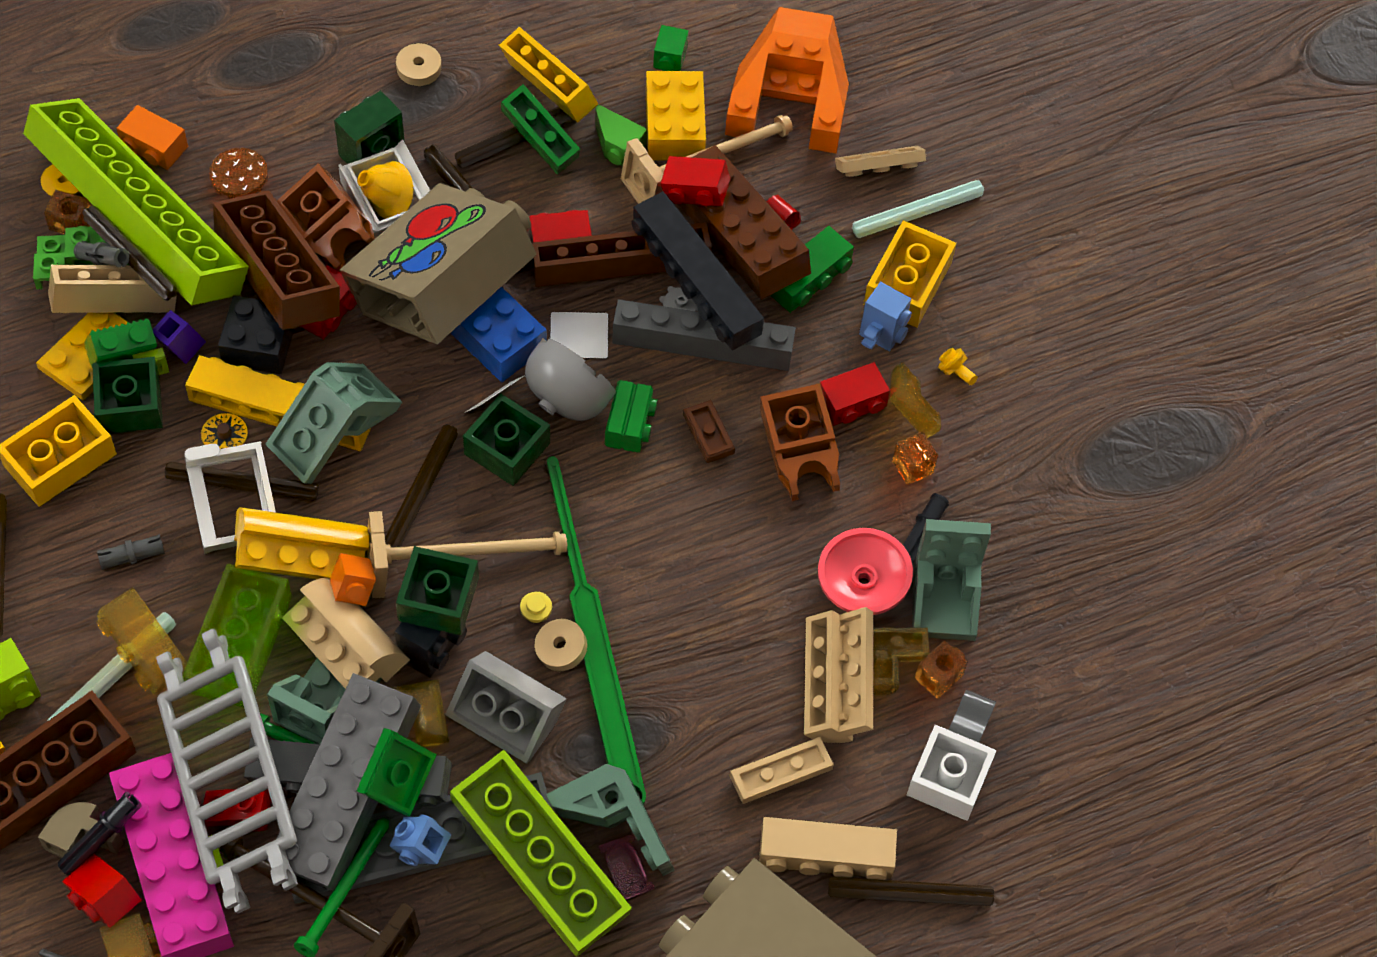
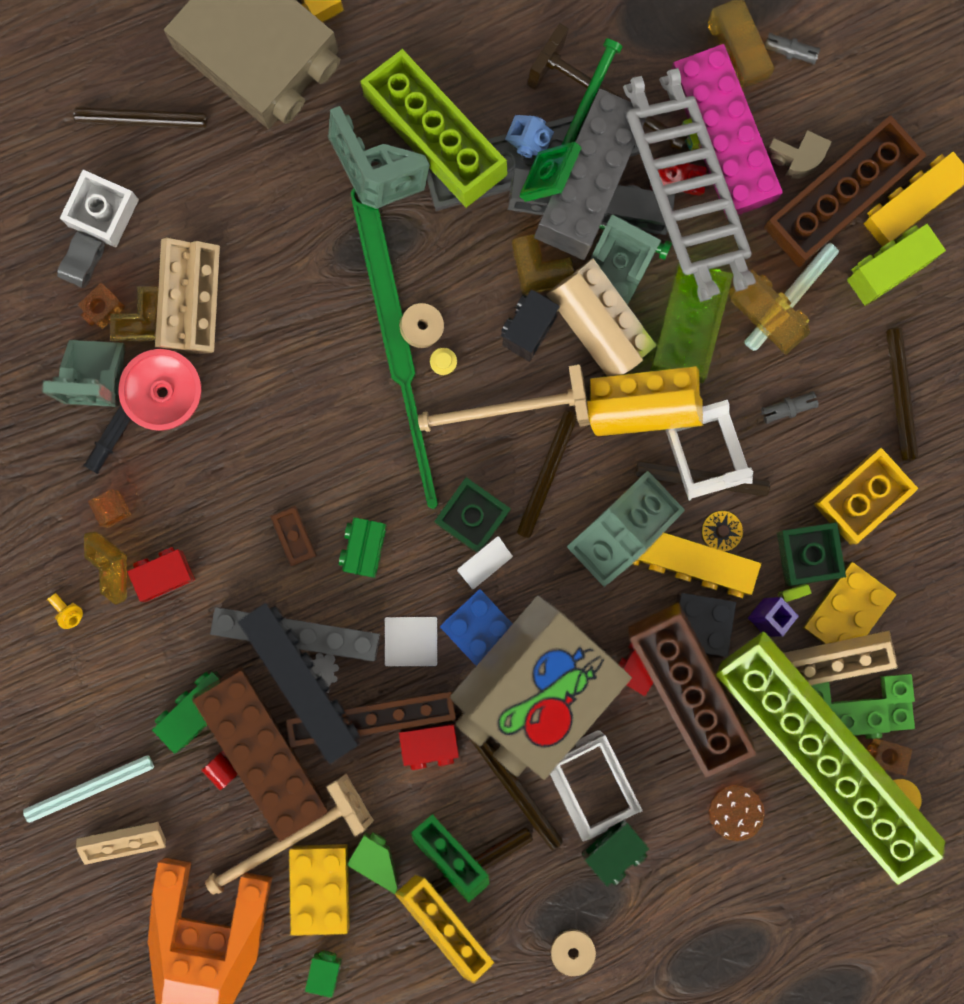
camera: 175 degrees left, 25 degrees up
(100, 891) = (776, 98): red brick -> none
(101, 254) = (852, 689): dark grey pin -> none
(109, 823) = (777, 143): black axle -> none
(120, 341) = (824, 603): green brick -> none
(137, 259) = (827, 693): dark brown axle -> none
(152, 137) = (823, 849): orange brick -> none
(325, 215) = (648, 747): dark orange brick -> none
(352, 579) = (598, 365): orange brick -> none
(387, 188) = (594, 790): yellow hat -> none
(437, 590) = (524, 329): dark green brick -> none
(505, 706) = (465, 268): light grey slope -> none
(566, 382) = (420, 568): light grey cylinder -> none
(626, 868) = (368, 131): clear pink piece -> none
(695, 180) = (299, 780): red brick -> none
(781, 770) = (239, 216): tan plate -> none
(803, 446) = (206, 515): dark orange brick -> none
(828, 848) = (204, 148): tan brick -> none
(885, 318) = (127, 649): medium blue brick -> none
(914, 266) = (100, 704): yellow brick -> none

